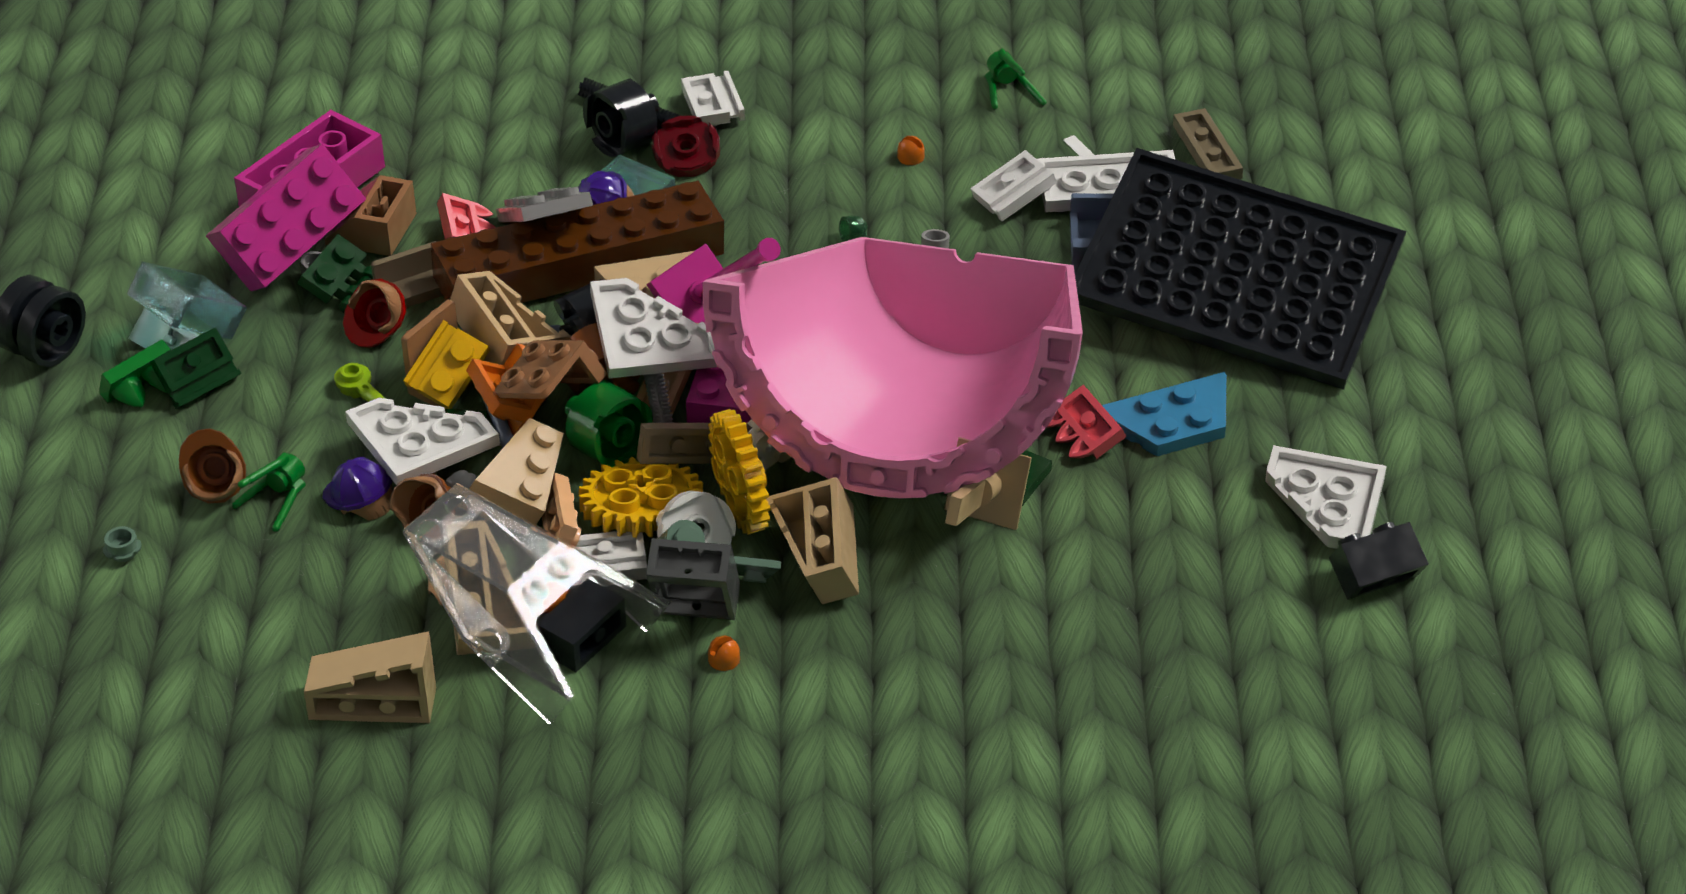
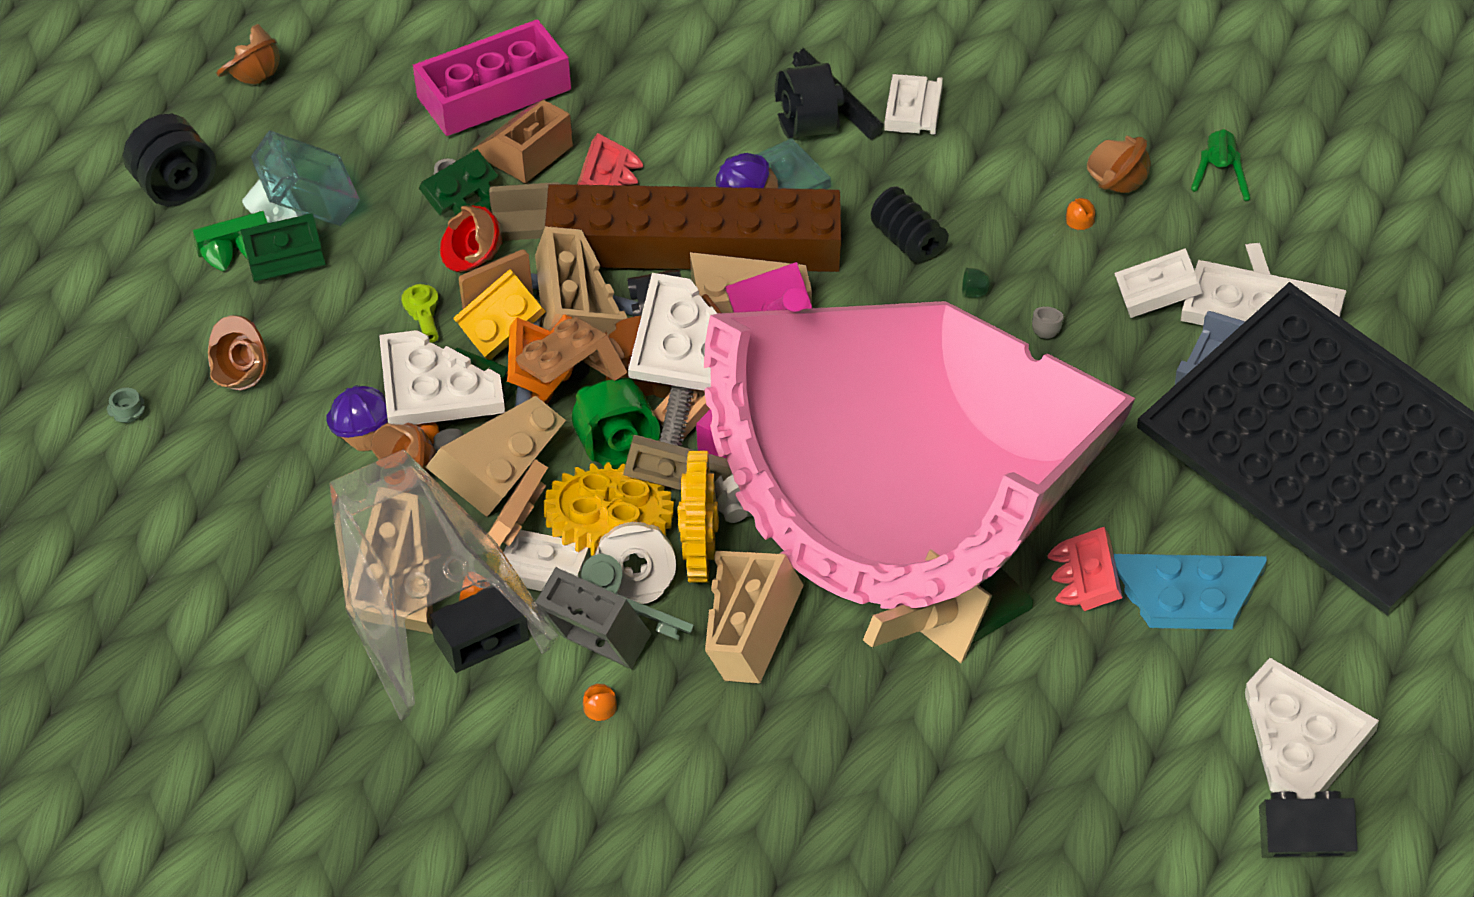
camera: 25 degrees right, 5 degrees up
(65, 216) = (255, 61): none -> dark orange piece
(281, 475) = (299, 379): green plant -> none
(286, 217) = (434, 119): dark pink brick -> none
(374, 682) = (257, 624): tan wedge -> none
(544, 204) = (663, 174): light grey plate -> none
(684, 133) = (854, 134): dark red plate -> none
(770, 197) = (908, 225): none -> black piece
(927, 100) = (1120, 164): none -> piece
(1207, 143) = (1388, 296): dark tan plate -> none

